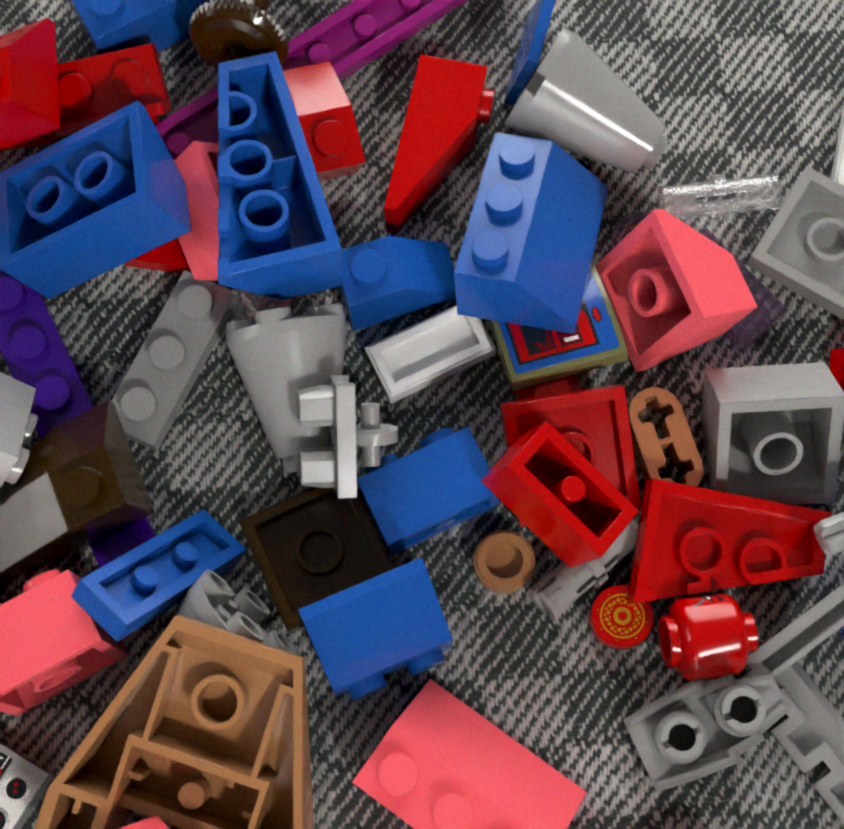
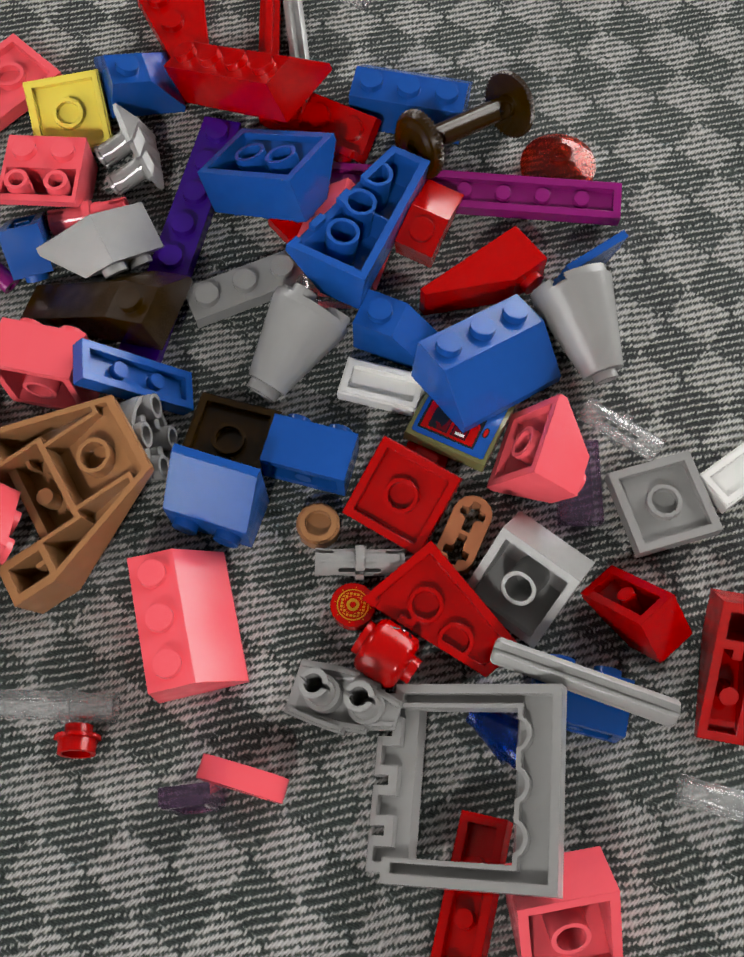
camera: 40 degrees right, 5 degrees down
(337, 464) = (271, 396): light grey hips -> none
(560, 495) = (368, 502): red brick -> none

